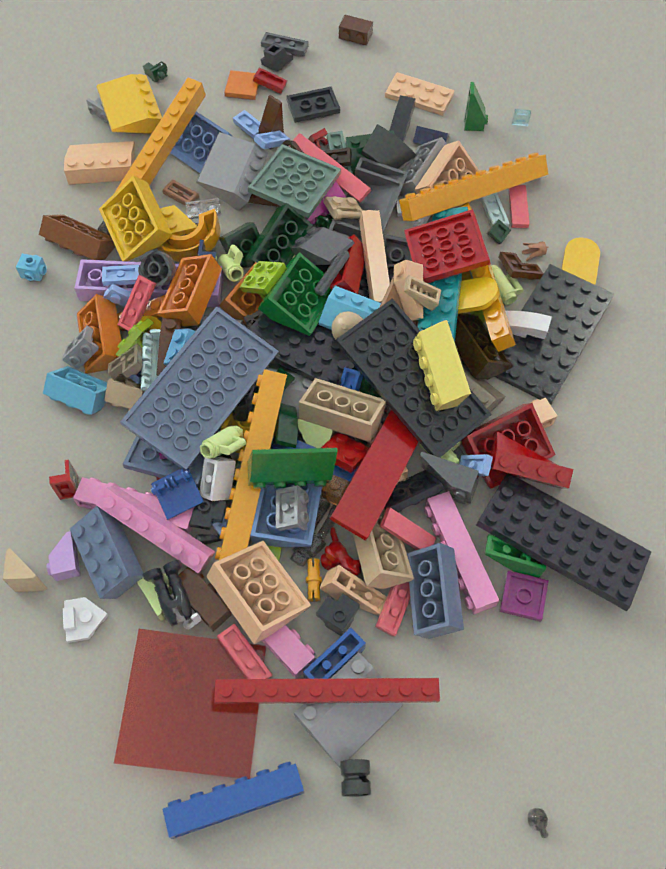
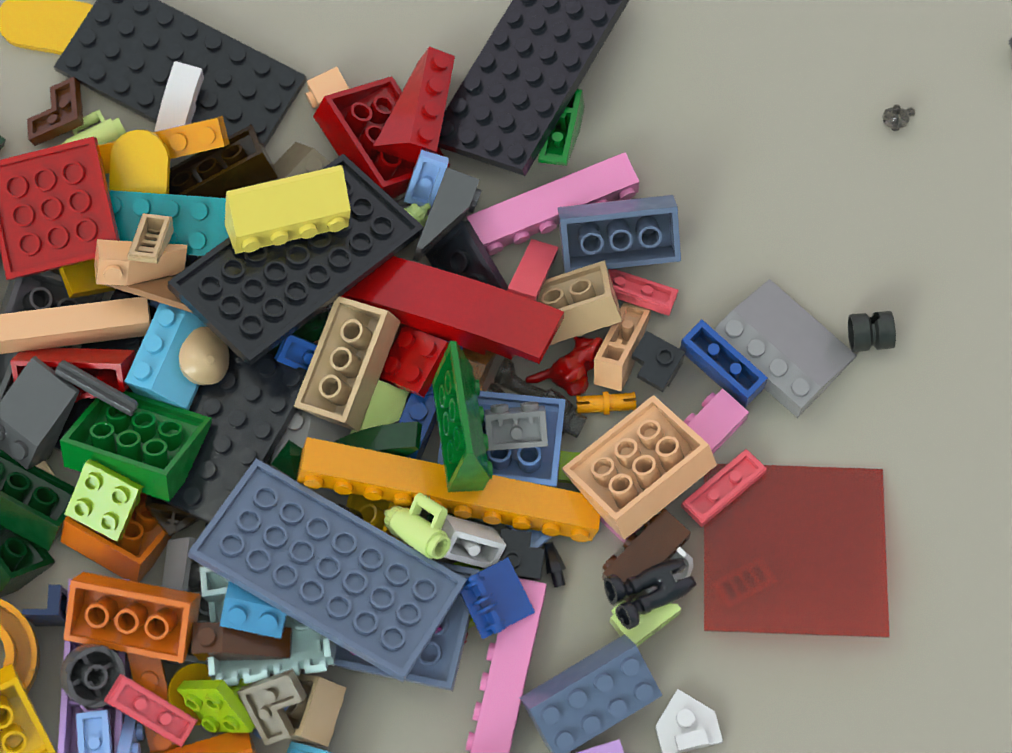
camera: 90 degrees left, 10 degrees up
(155, 528) = (552, 625): bright pink brick -> none
(231, 264) = (66, 565): yellowish green piece -> none
(232, 801) = (913, 482): blue brick -> none
(327, 690) = (772, 367): red plate -> none
(524, 596) = (610, 124): magenta plate -> none
(536, 249) = (21, 85): nougat piece -> none

